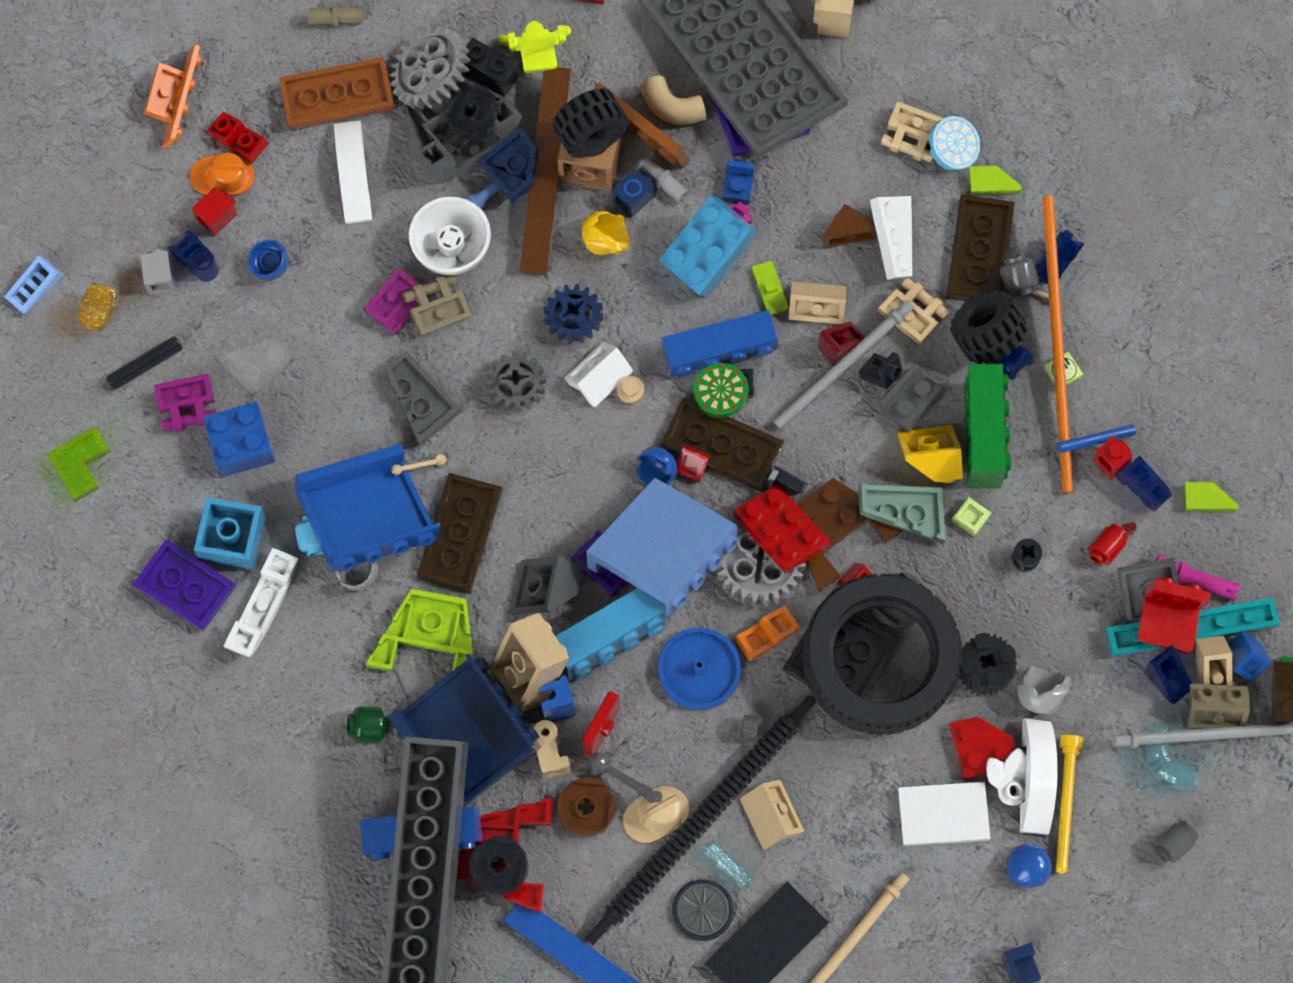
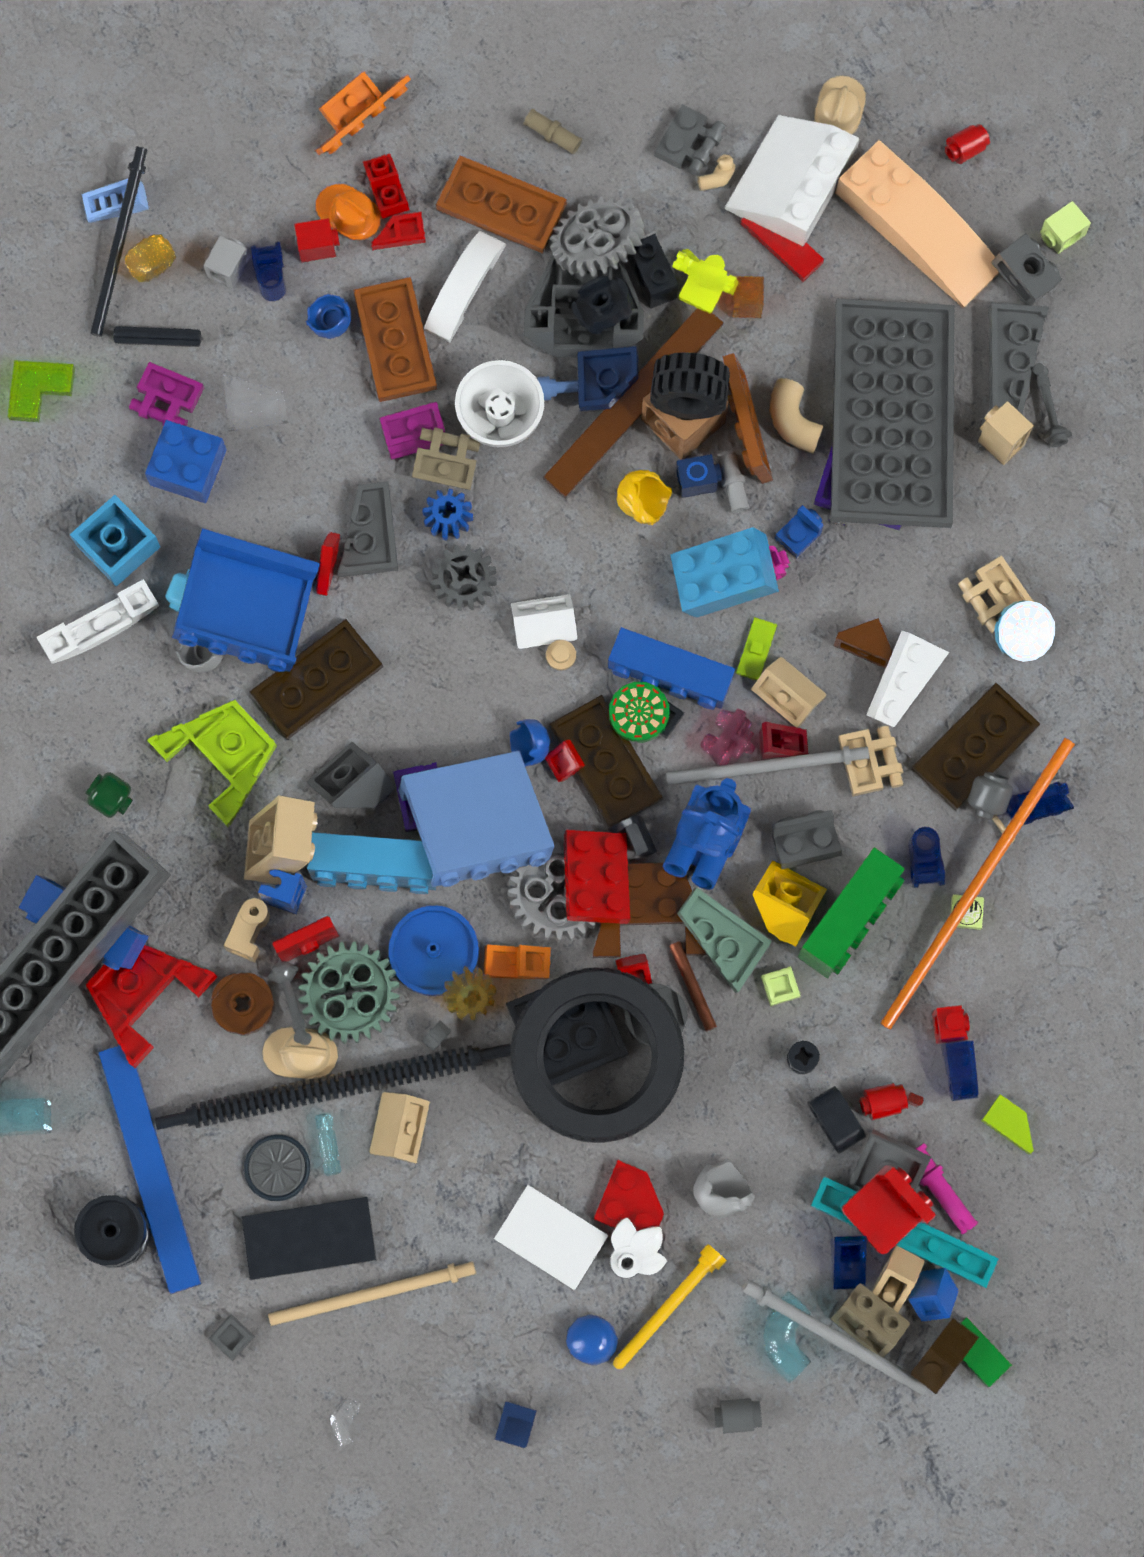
camera: 35 degrees right, 5 degrees up
(37, 247) = (136, 169): none -> black bar
(184, 585) = (46, 559): dark purple plate -> none
(274, 163) = (401, 231): none -> red tile
(331, 244) = (395, 339): none -> dark orange plate
(404, 438) = (327, 562): none -> red tile
(440, 461) = (347, 601): tan hinge -> none
(472, 710) = (203, 853): dark blue panel -> none
(474, 336) = (457, 519): none -> blue gear
(490, 852) = (137, 1014): black plate -> none
(575, 302) = (549, 551): dark blue gear -> none
(577, 41) = (748, 297): none -> clear orange brick
(641, 725) = (345, 964): none -> sand green gear
(751, 678) = (458, 990): none -> clear yellow gear
(803, 363) = (733, 739): none -> clear pink hips
(838, 441) = (706, 837): none -> blue helmet
(881, 370) = (798, 795): black bracket -> none
(908, 561) = (692, 986): none -> copper bar
(988, 327) = (922, 824): black tyre -> none
(991, 180) = (1034, 689): lime tile -> none
(998, 654) = (696, 1115): black brick -> none
(1041, 777) = (661, 1266): white slope -> none
(1084, 581) = (836, 1119): none -> black beam
(1096, 438) = (947, 996): blue bar -> none

